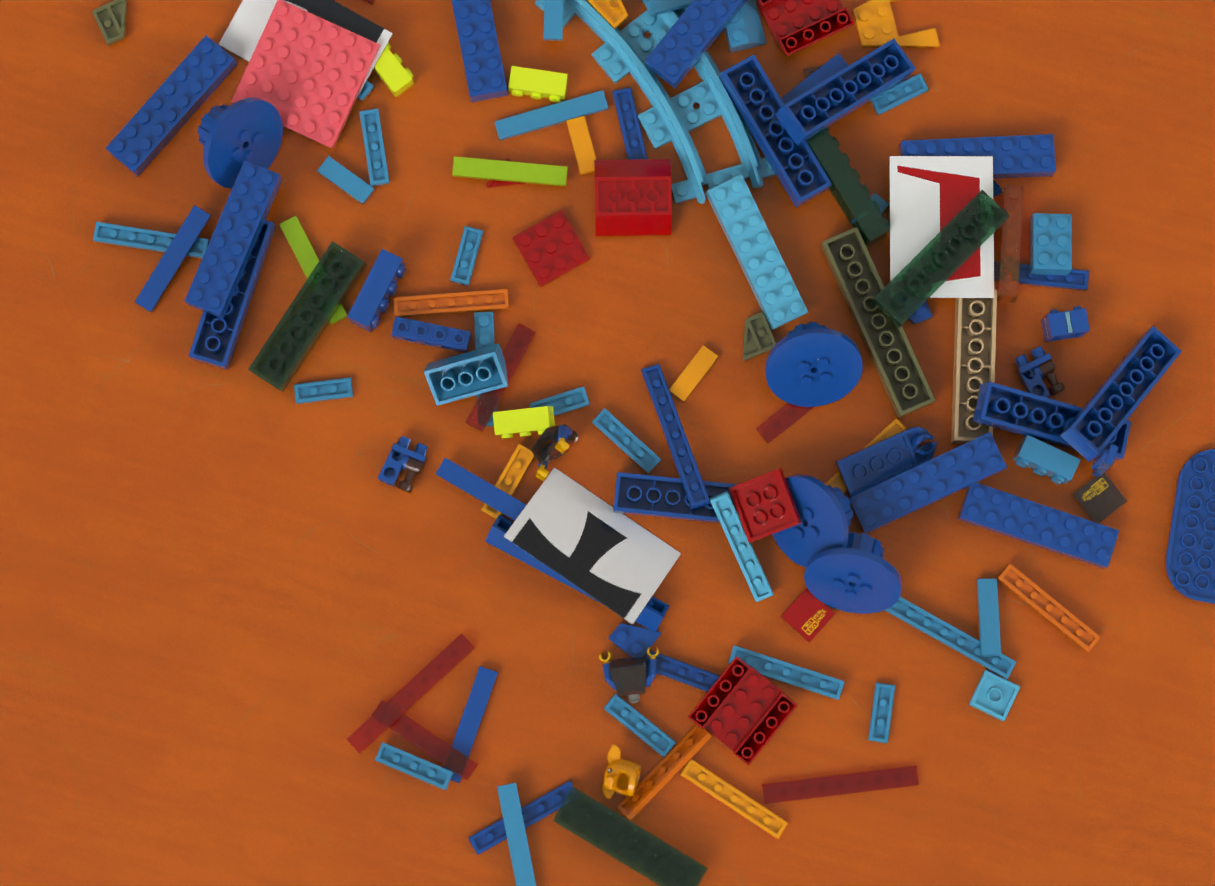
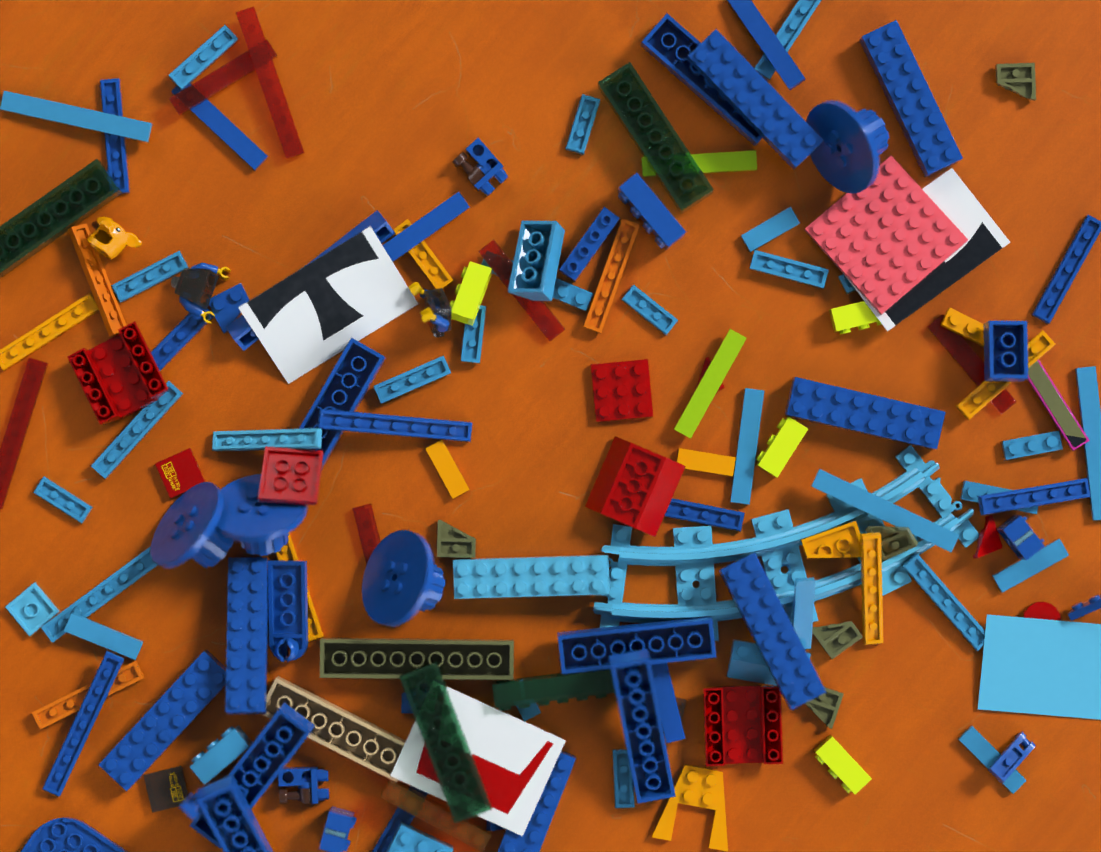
camera: 110 degrees right, 5 degrees up
(1076, 599) = (83, 723): none -> blue tile

